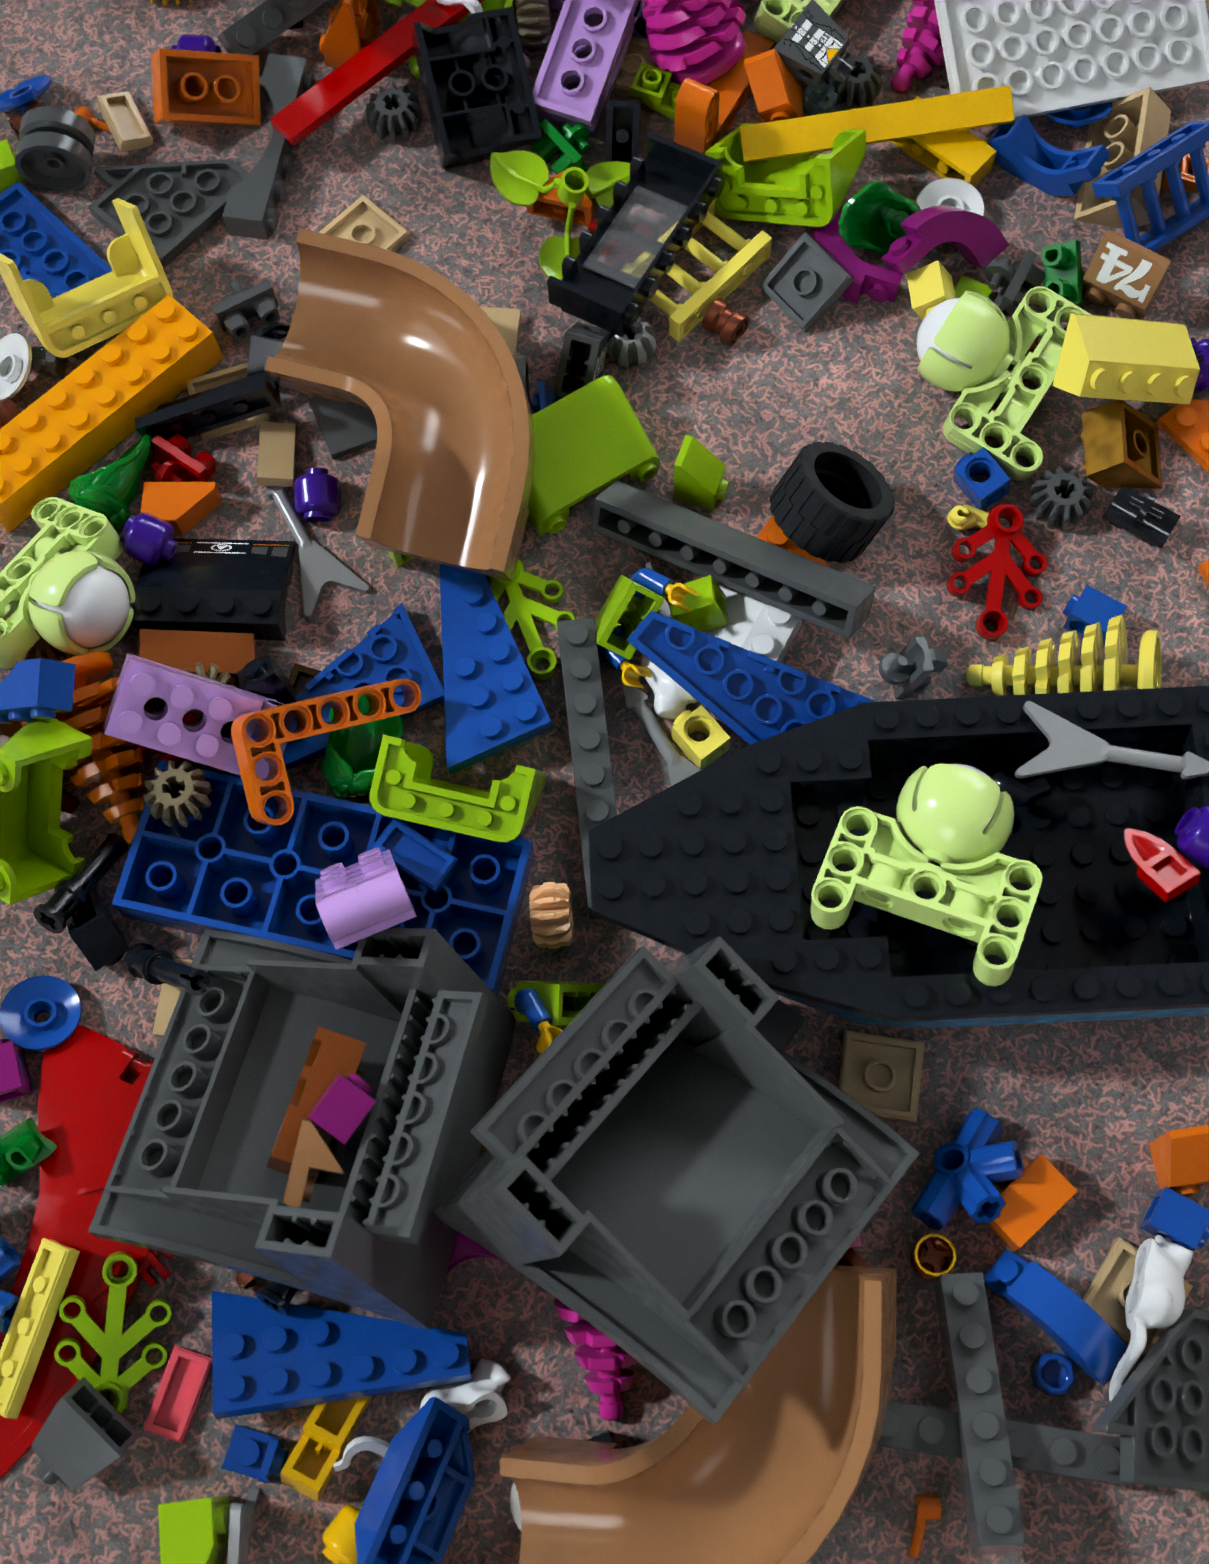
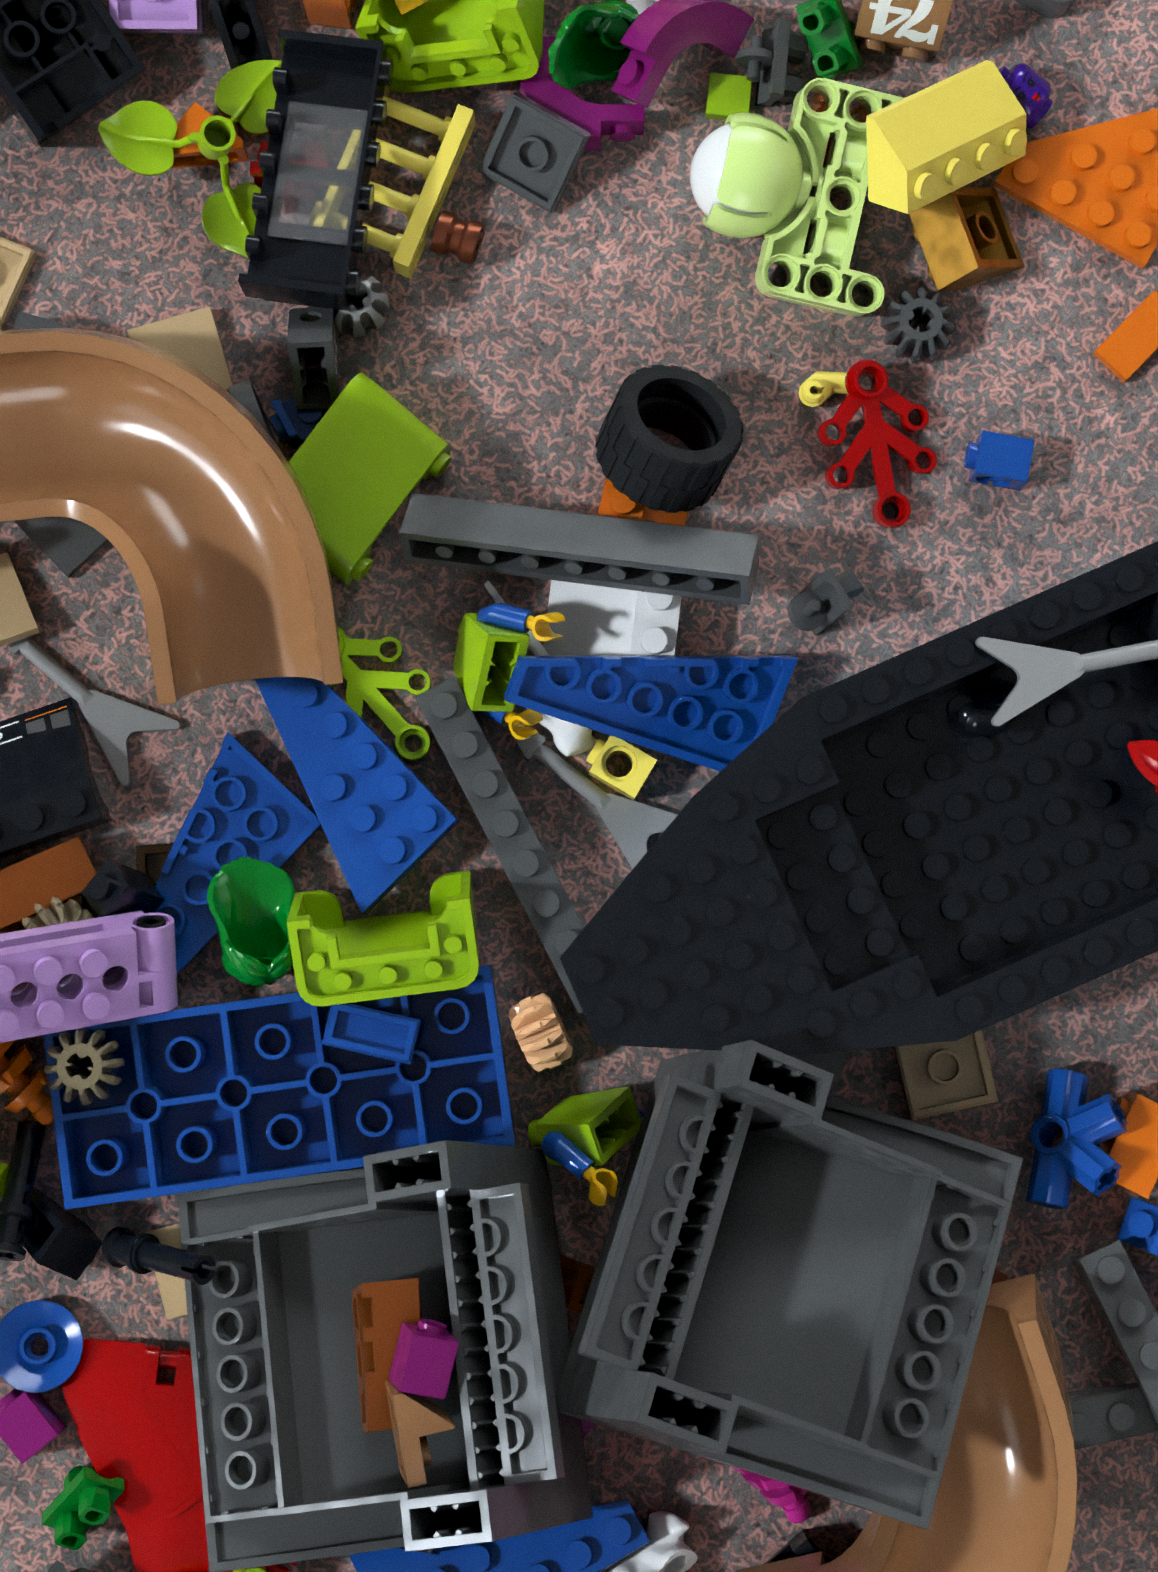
camera: 25 degrees left, 15 degrees up
(308, 724) = (198, 941): orange beam -> none
(317, 495) = (74, 635): dark purple head -> none
(362, 898) = (349, 1126): lavender hinge -> none
(553, 141) = (190, 83): green hips -> none
(699, 476) = (505, 453): lime slope -> none
(707, 609) = (577, 608): lime brick -> none
(928, 1508) = (1139, 1481): orange hand -> none
(929, 287) = (685, 113): light yellow brick -> none
(935, 1251) = (1069, 1240): copper wheel -> none
(945, 844) = (945, 831): yellowish green beam -> none
(987, 492) = (834, 350): blue brick -> none
(1068, 675) = (999, 549): light yellow plant -> none
(1141, 516) = (1015, 318): black hips -> none

